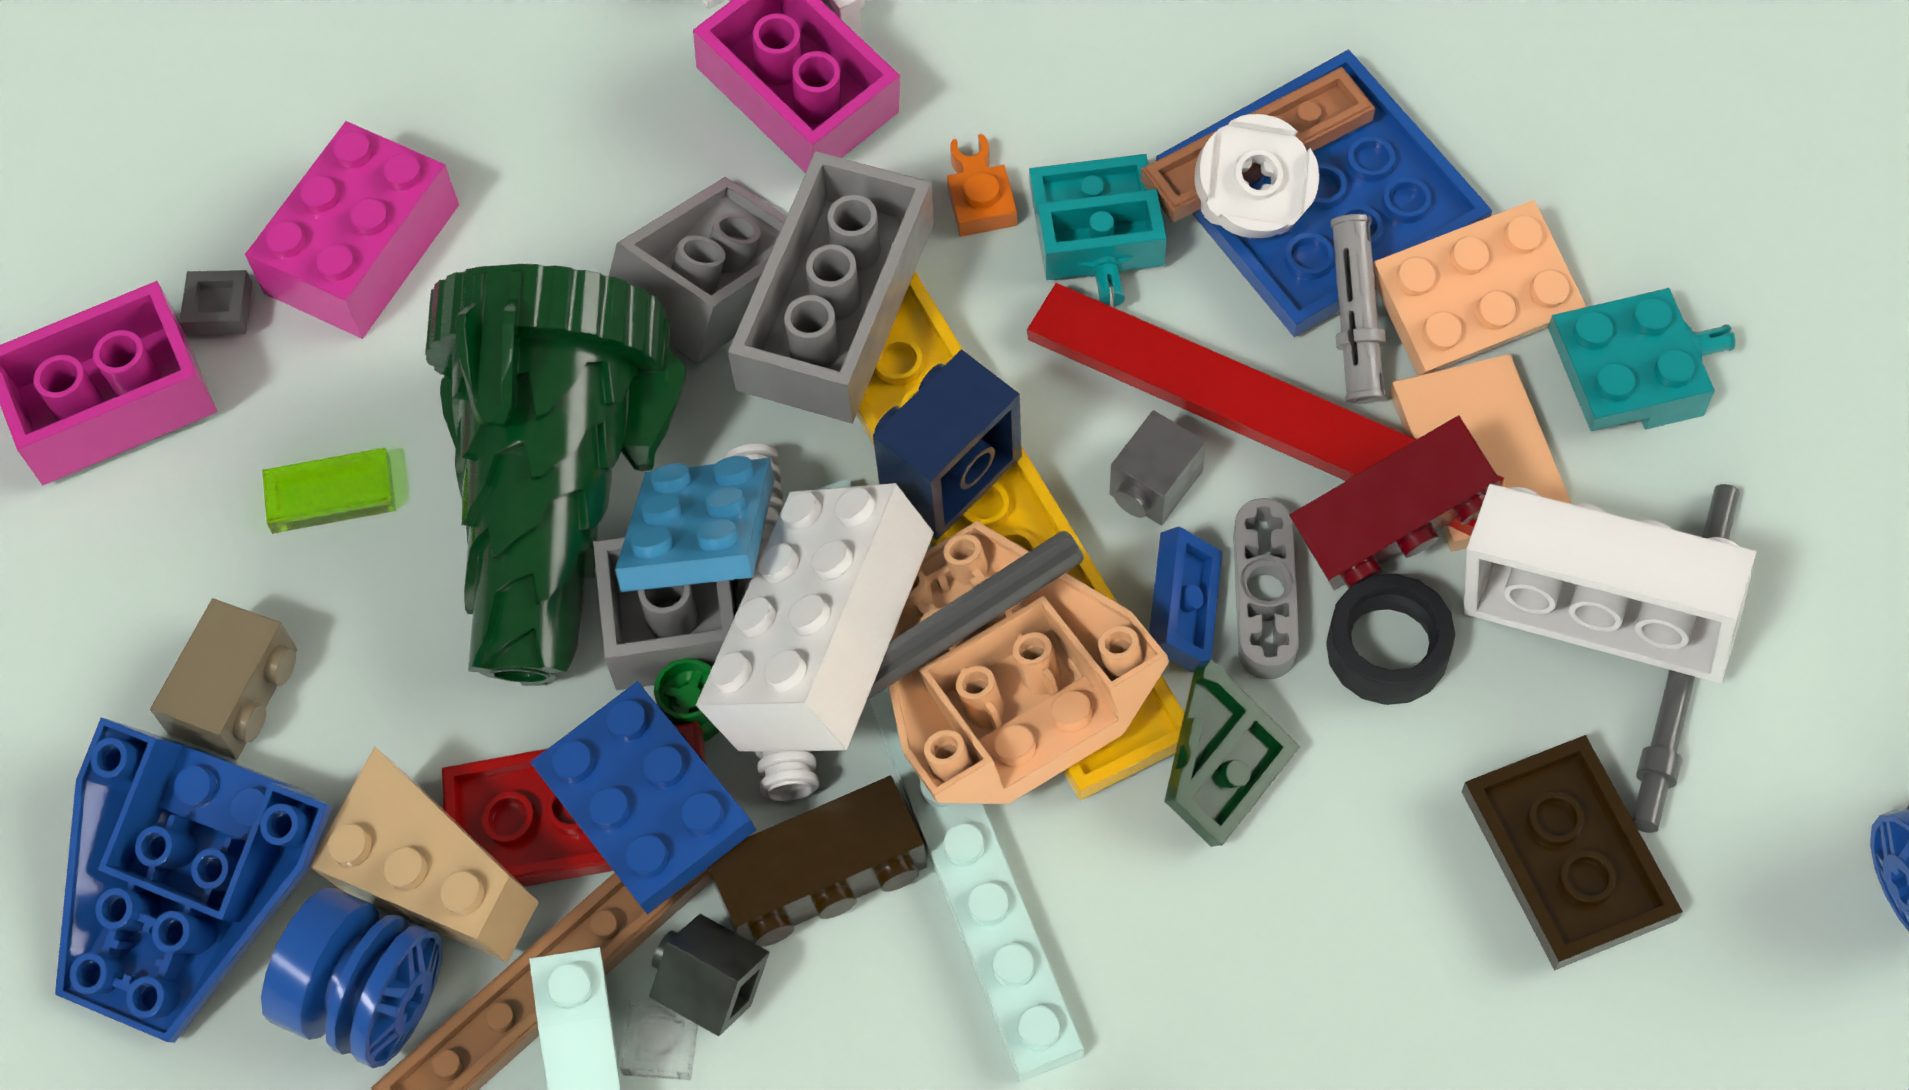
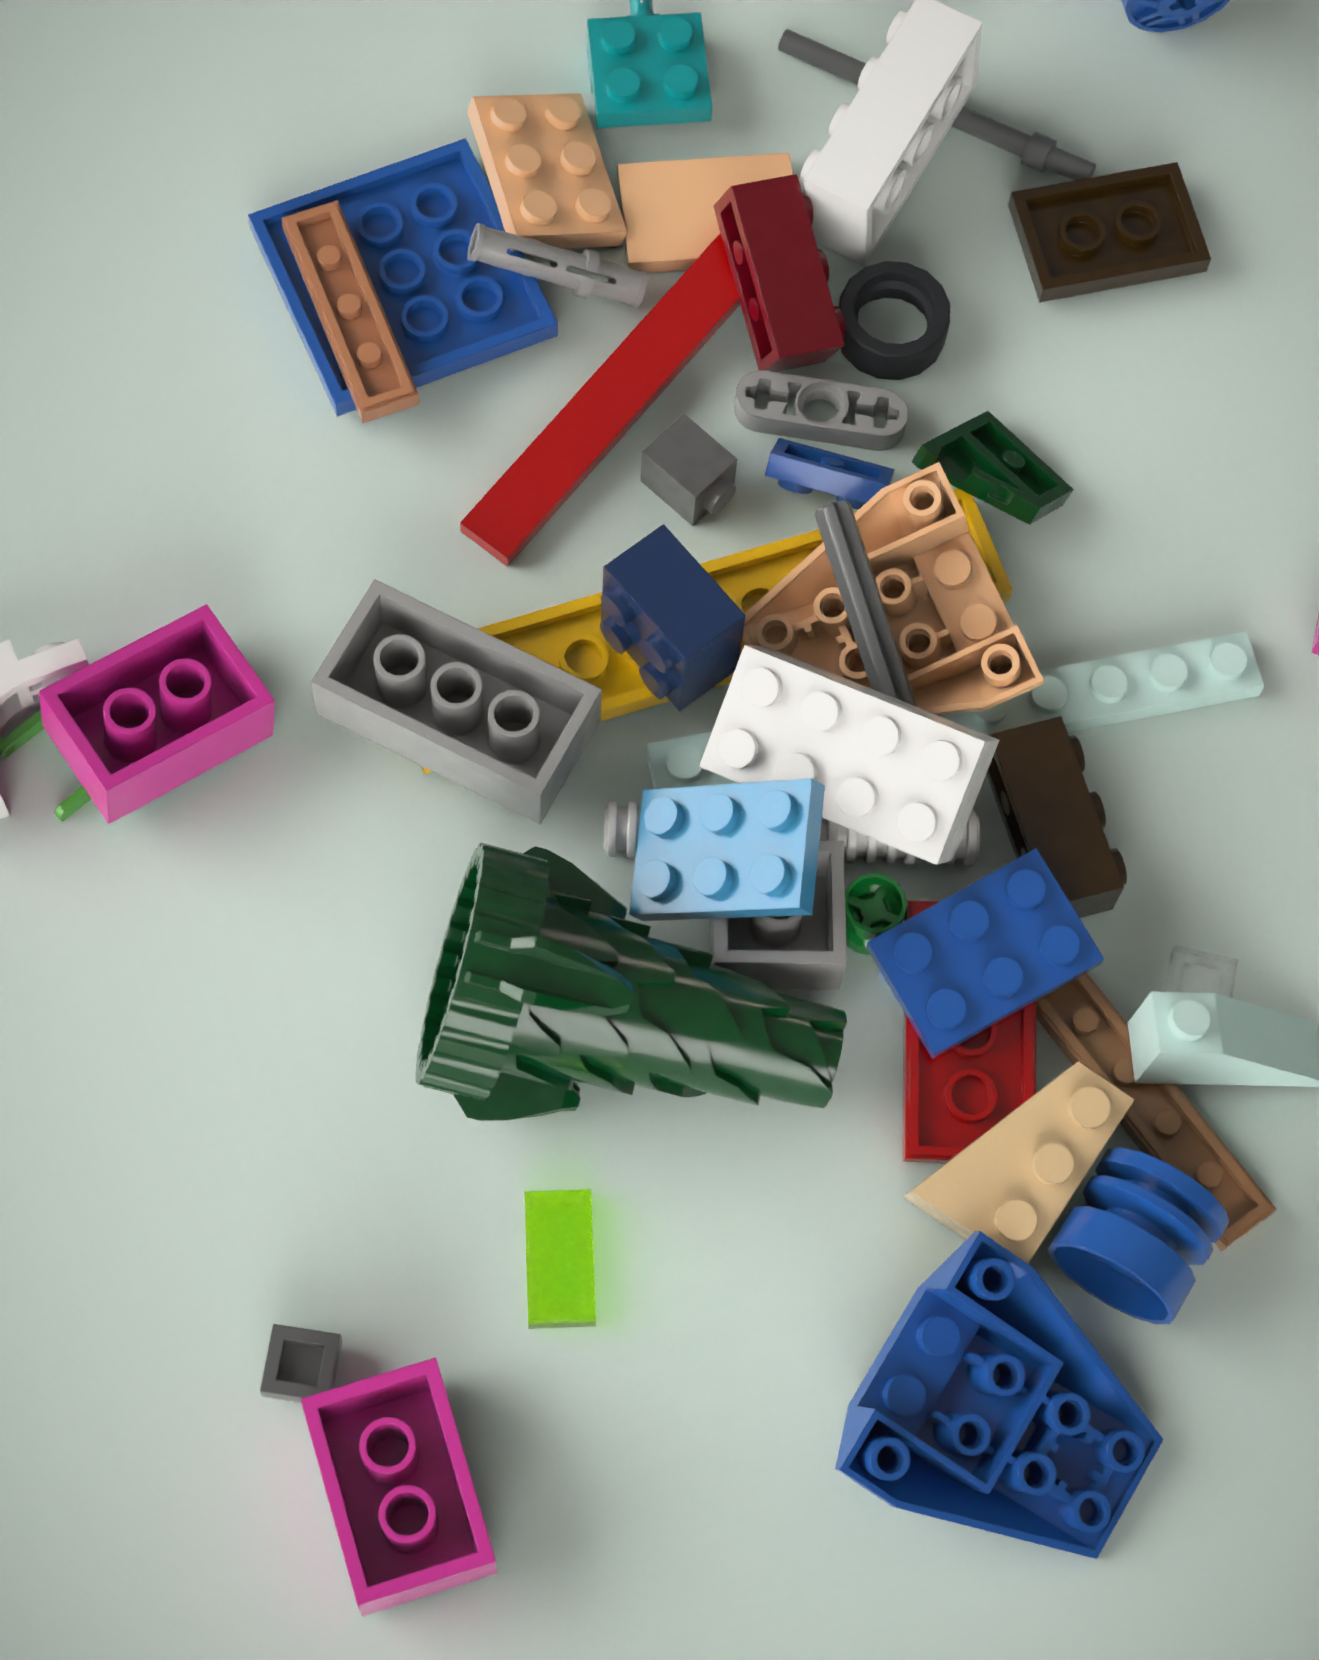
camera: 90 degrees left, 5 degrees up
(225, 679) = (781, 1364): dark tan brick -> none
(353, 229) = (243, 1201): dark pink brick -> none
(702, 263) = (371, 841): light grey slope -> none
(707, 973) = (1157, 923): pearl dark grey brick -> none
(979, 193) = (330, 578): orange plate -> none
(1097, 221) = (395, 472): teal plate -> none
(1282, 156) = (396, 336): white plate -> none

